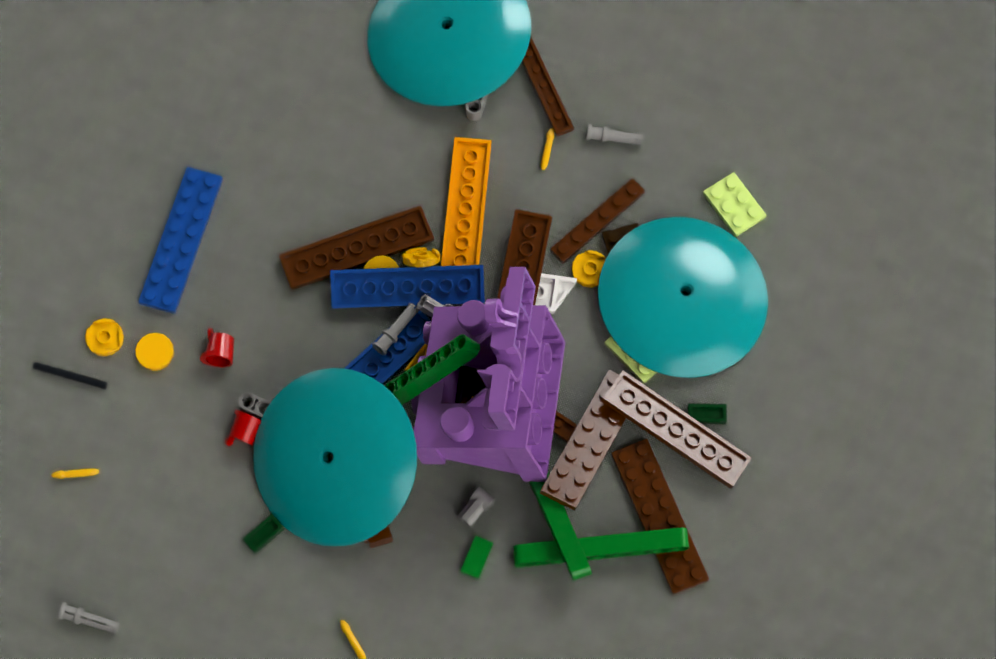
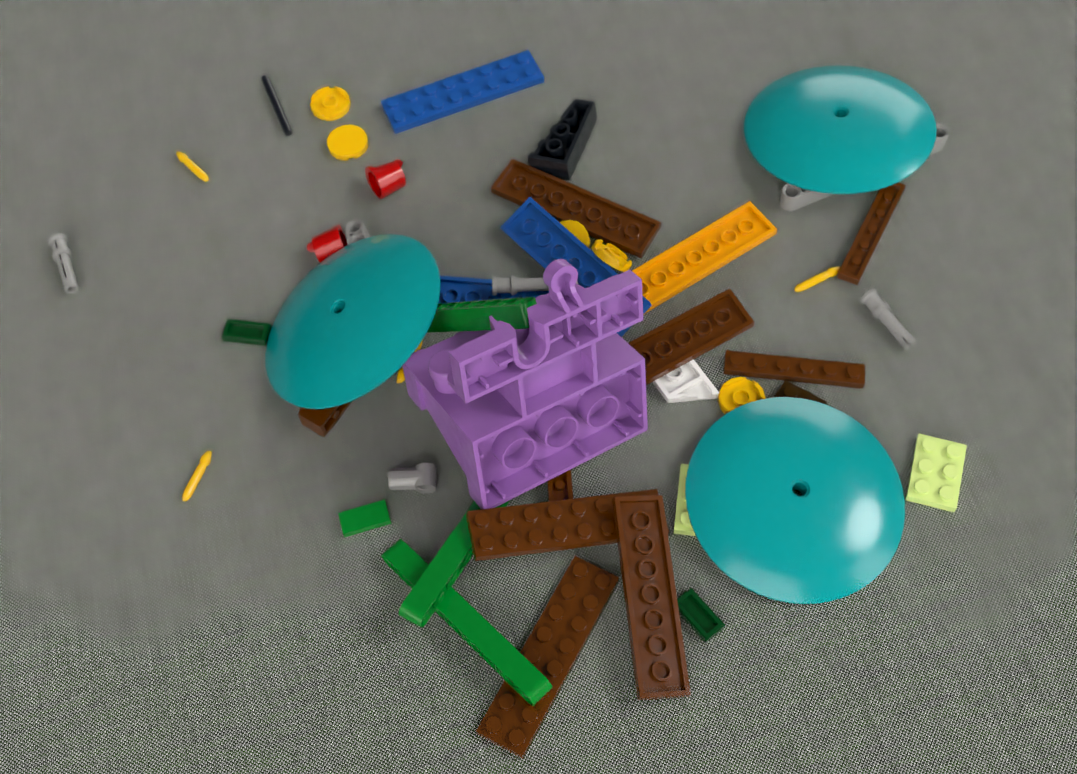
camera: 55 degrees right, 10 degrees down
(301, 216) = (564, 145): none -> black wedge

